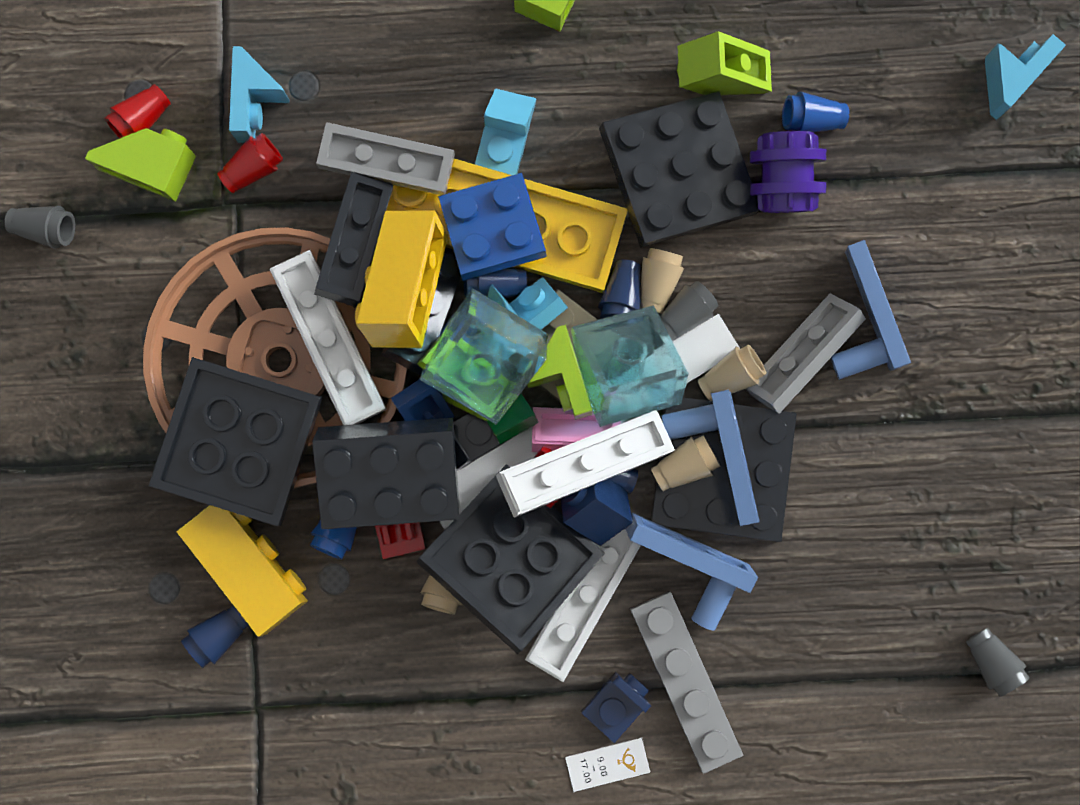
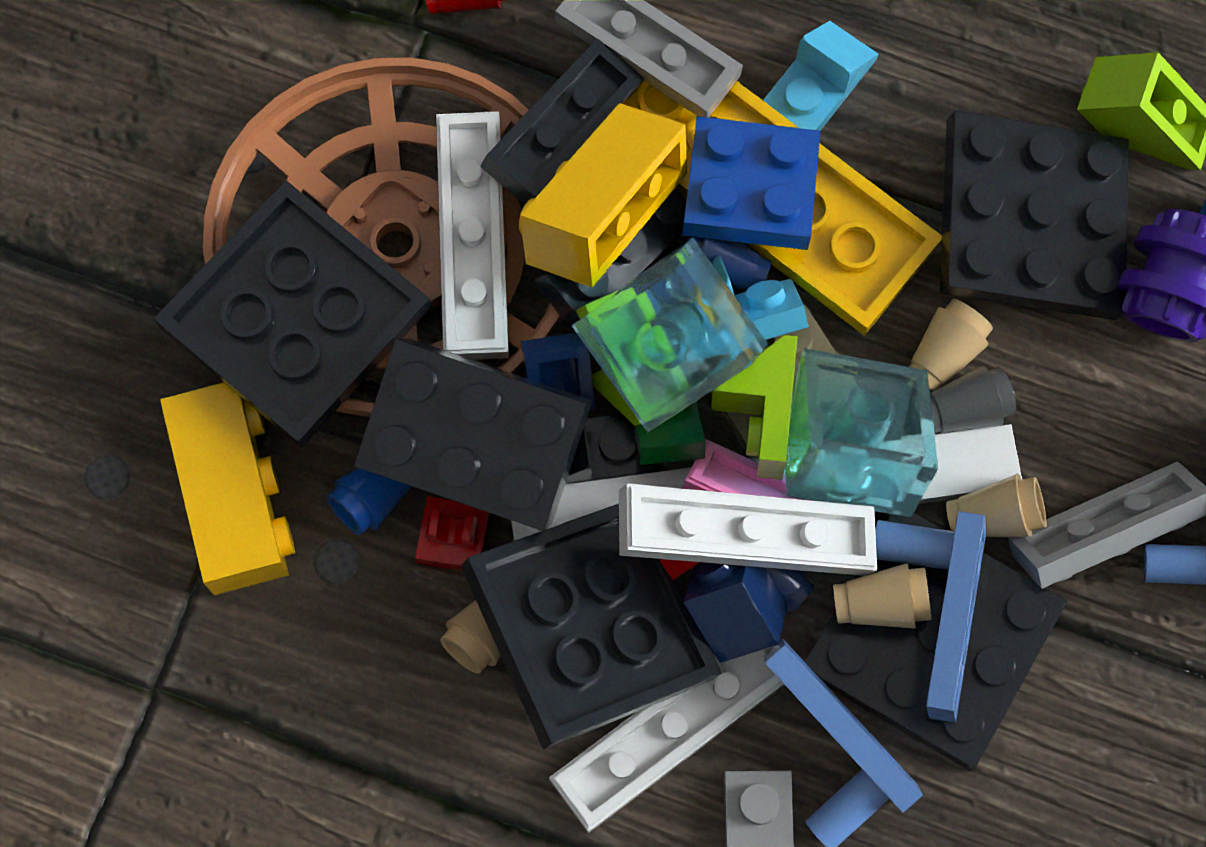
camera: 25 degrees right, 10 degrees down
(214, 636) = (145, 563): dark blue cone -> none
(622, 290) = (894, 336): dark blue cone -> none

